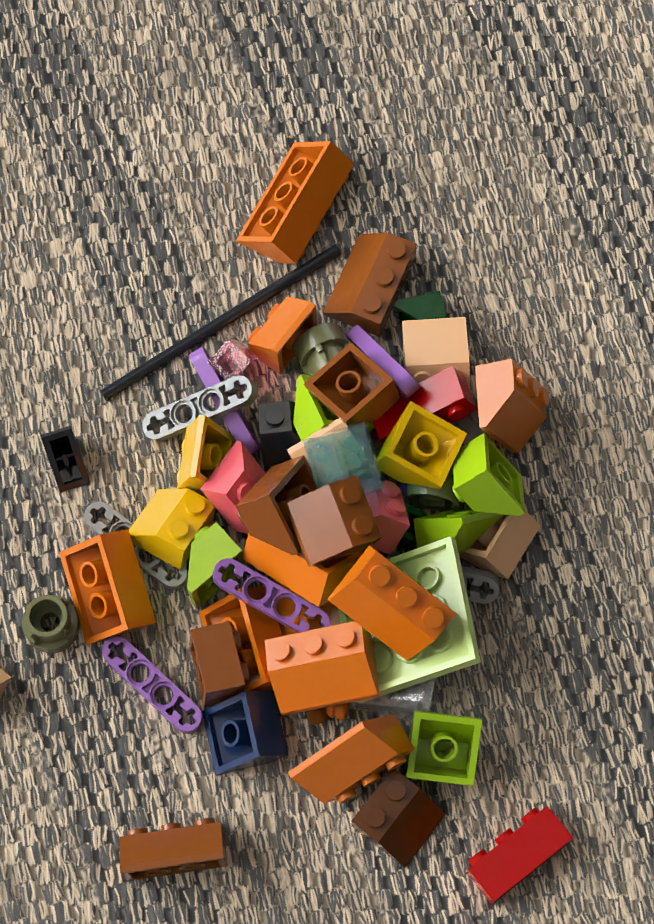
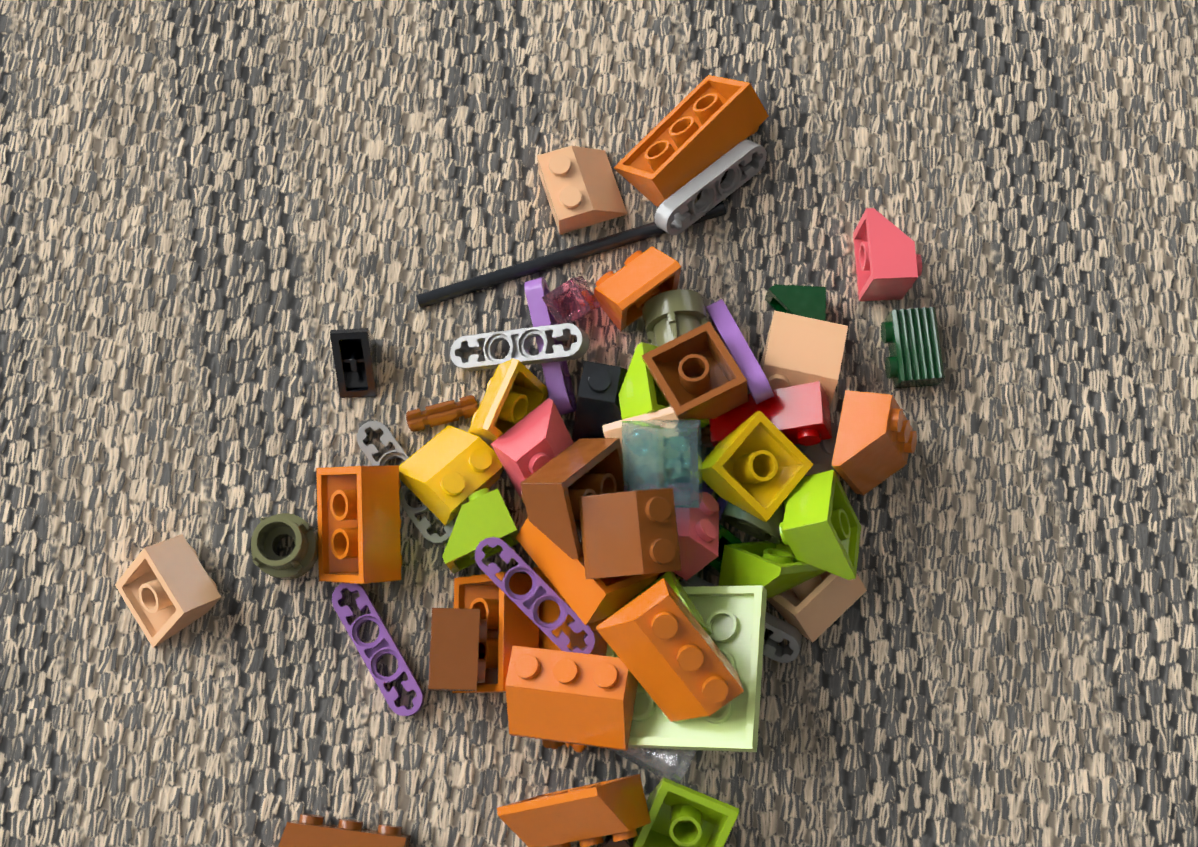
camera: 10 degrees right, 5 degrees up
(149, 481) = (441, 413): none -> dark orange axle
(212, 265) = (580, 187): none -> light nougat slope
(244, 731) = (465, 736): dark blue slope -> none
(301, 261) = (679, 209): none -> light grey beam
(371, 281) = (751, 254): dark orange slope -> none
(481, 256) = (883, 259): none -> coral slope
(526, 321) = (913, 347): none -> dark green brick

